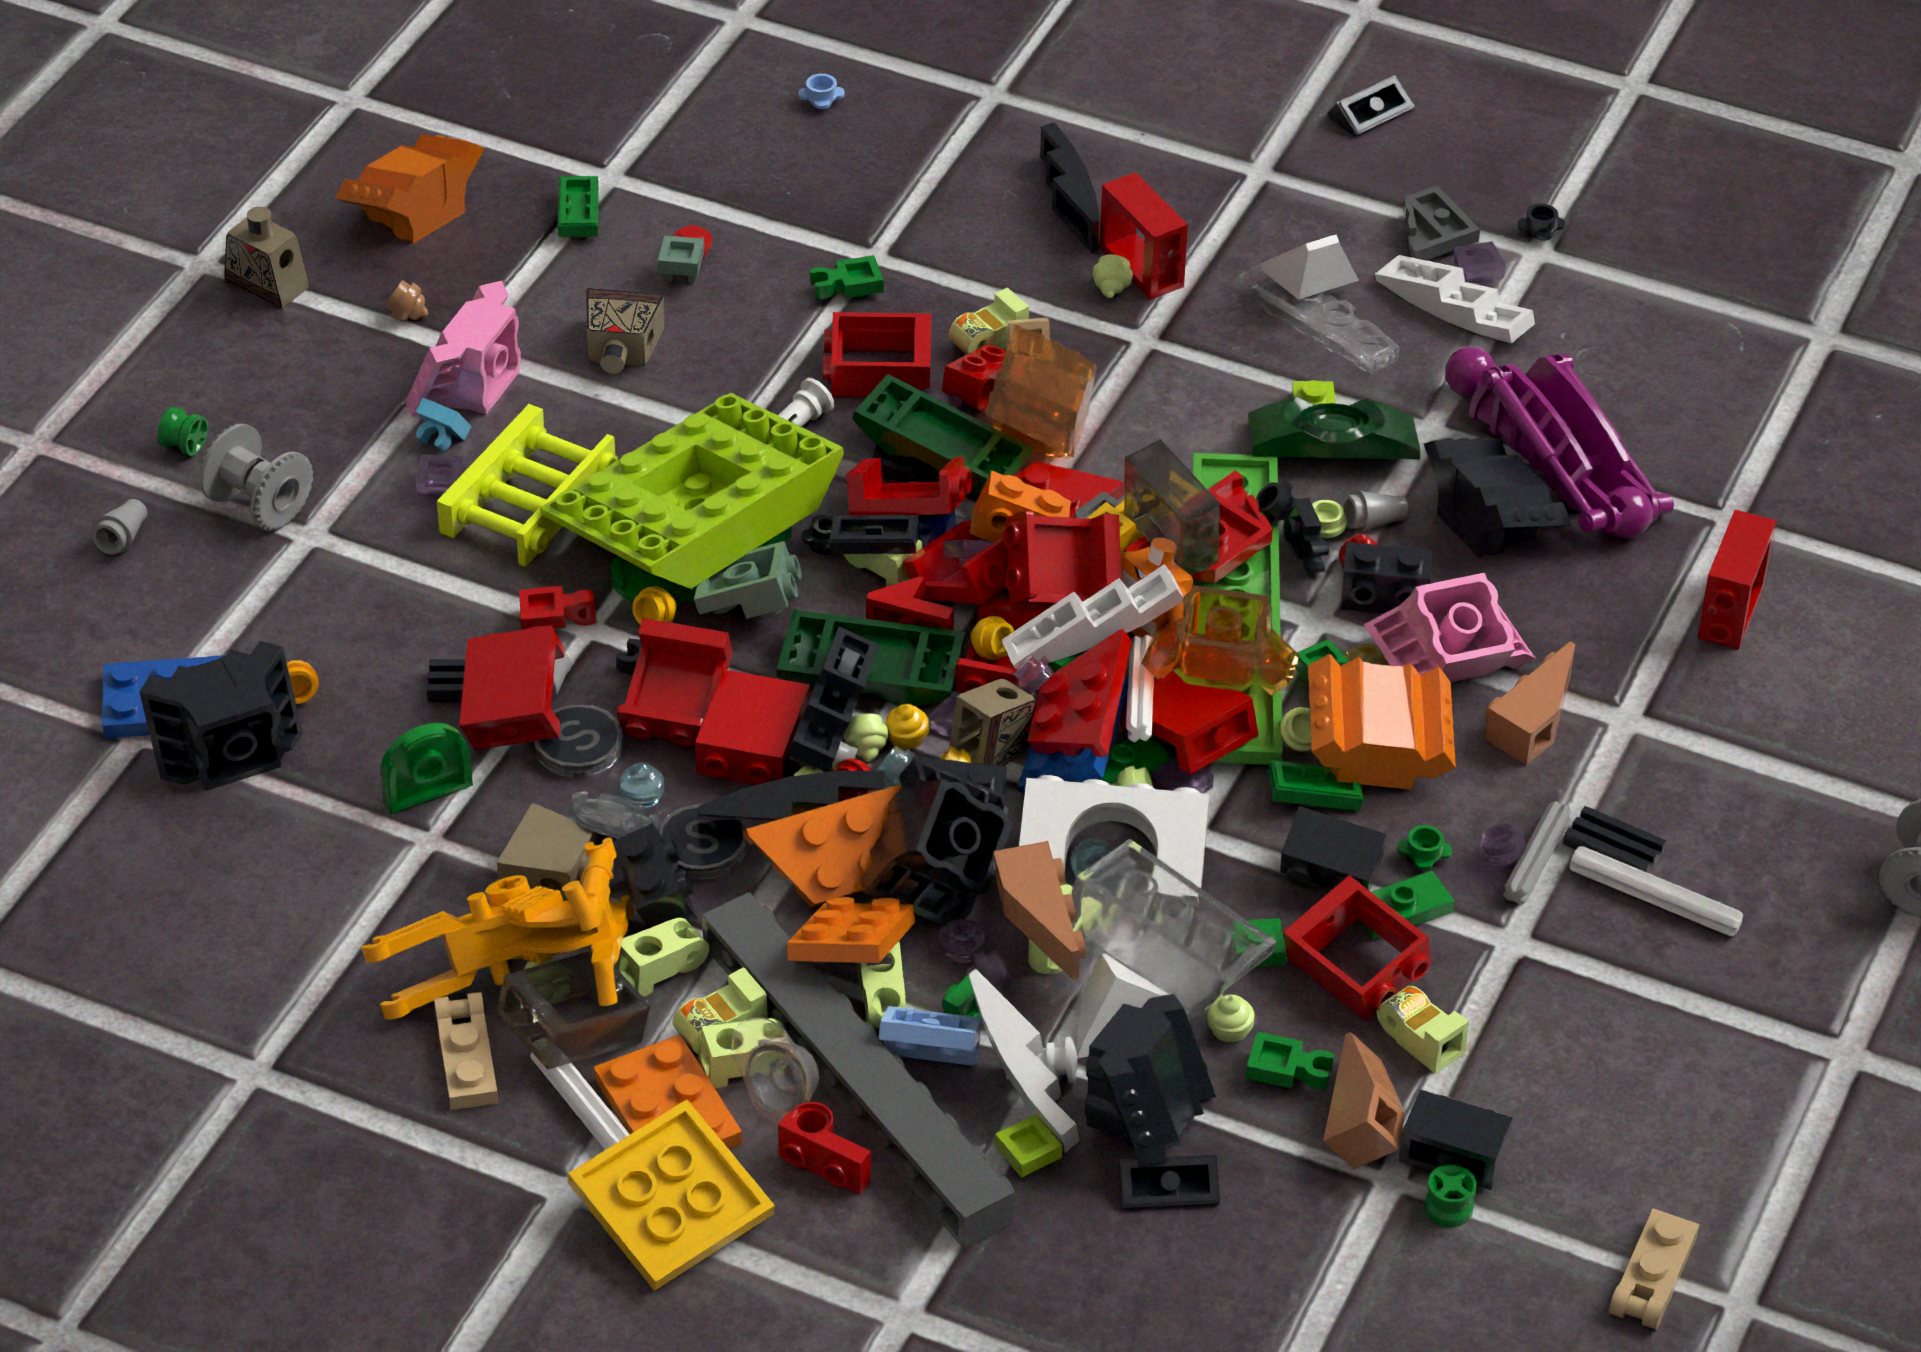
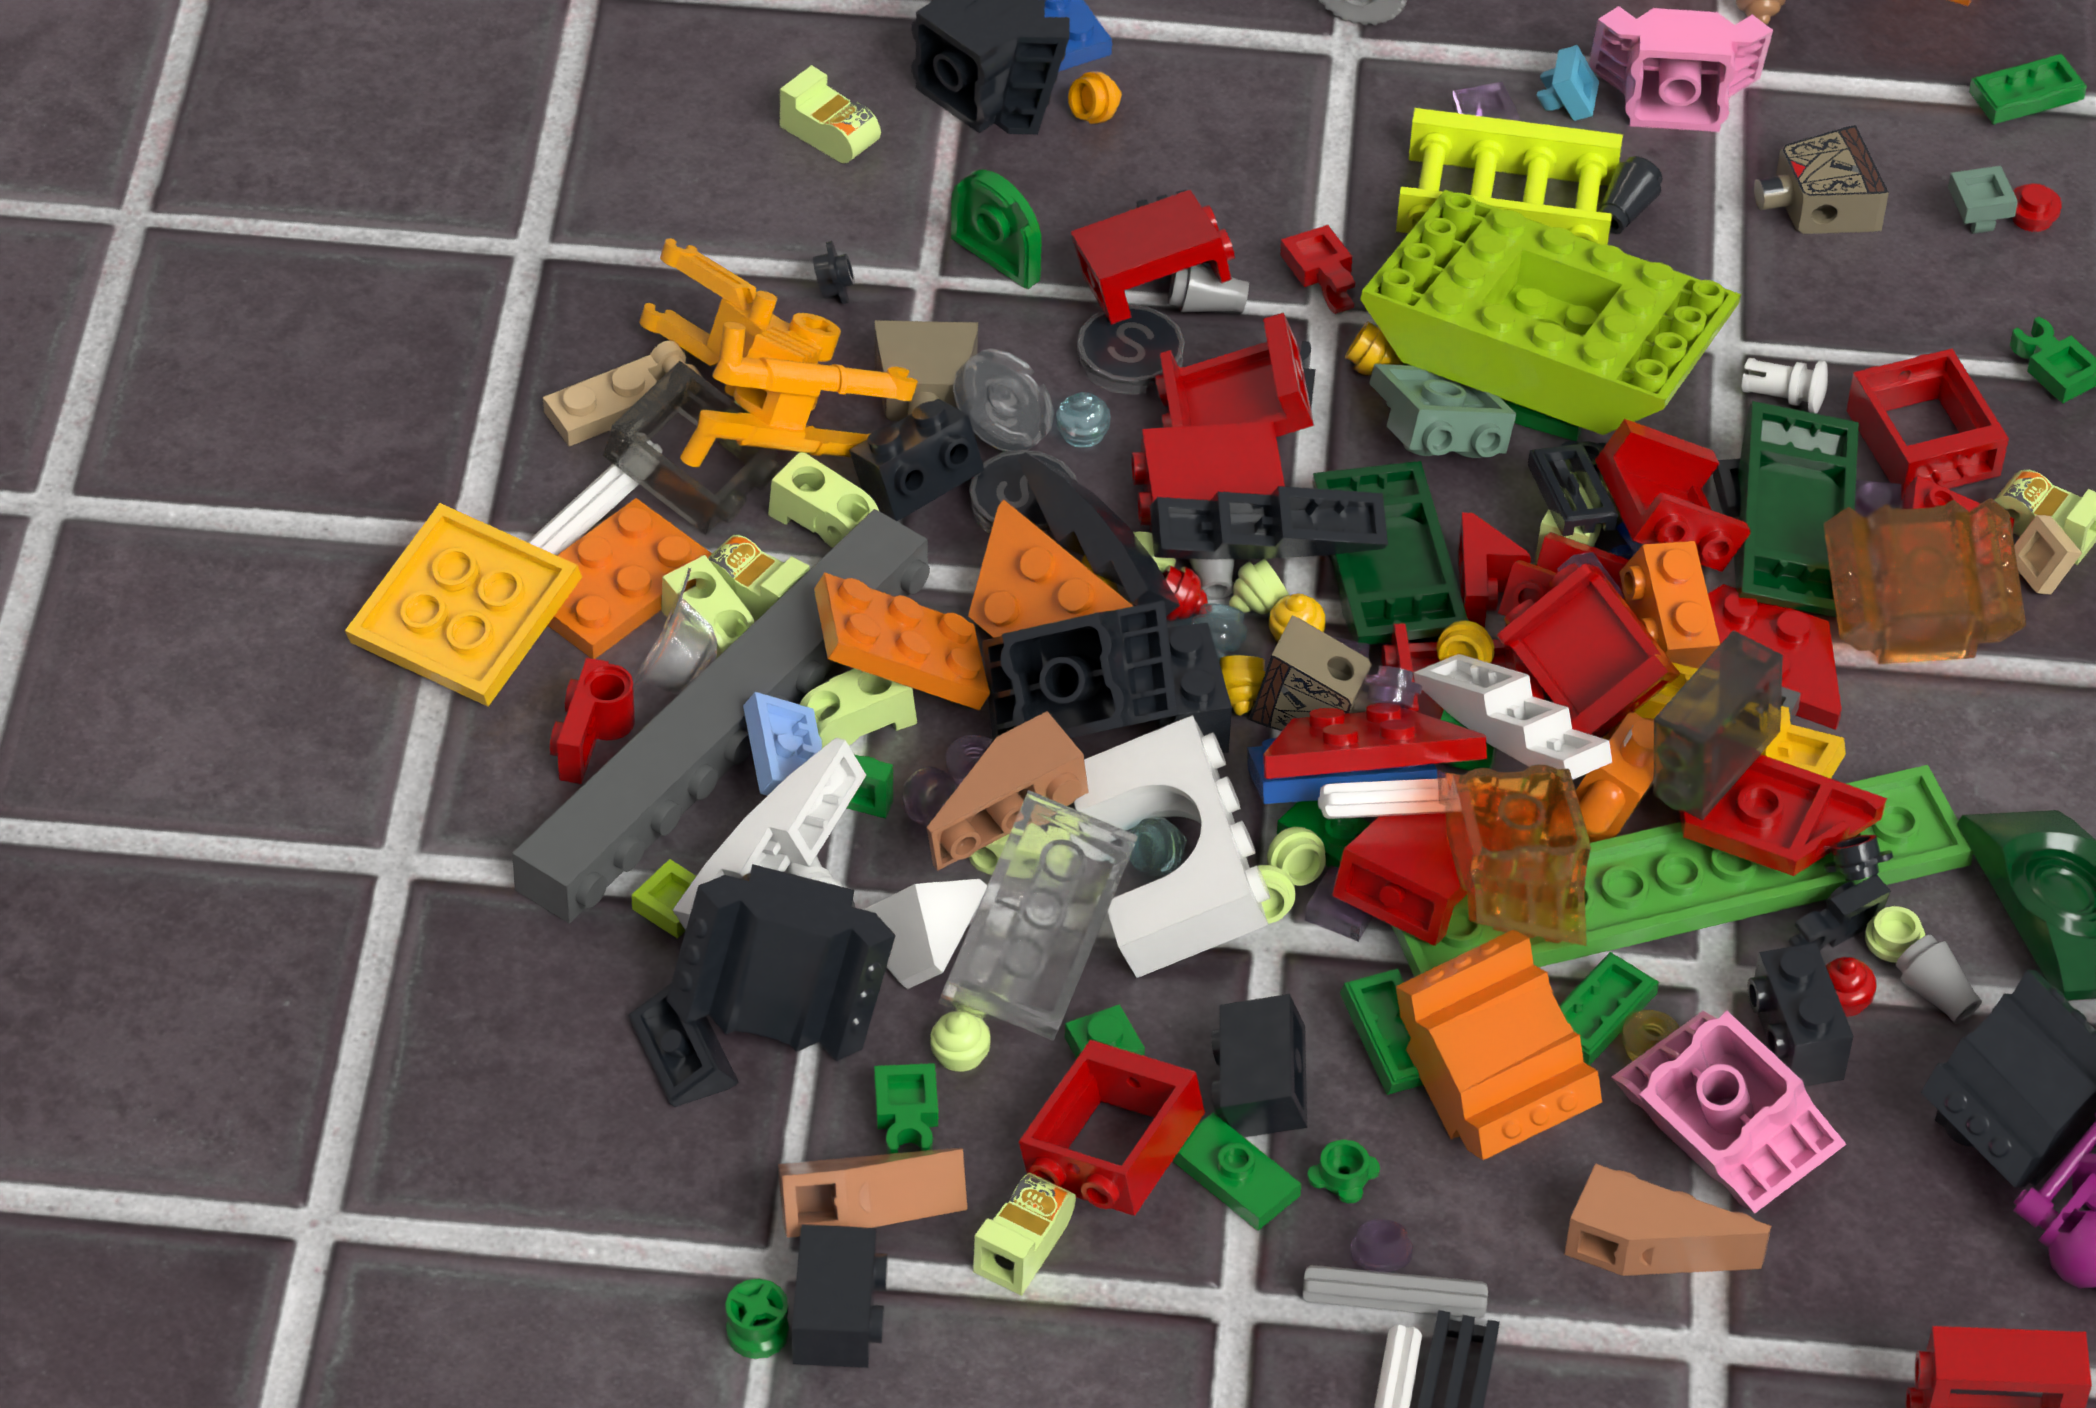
camera: 70 degrees right, 5 degrees up
(227, 843) = (826, 117): none -> yellowish green leg
(409, 884) = (834, 273): none -> black plate
(568, 423) = (1630, 191): none -> black cone

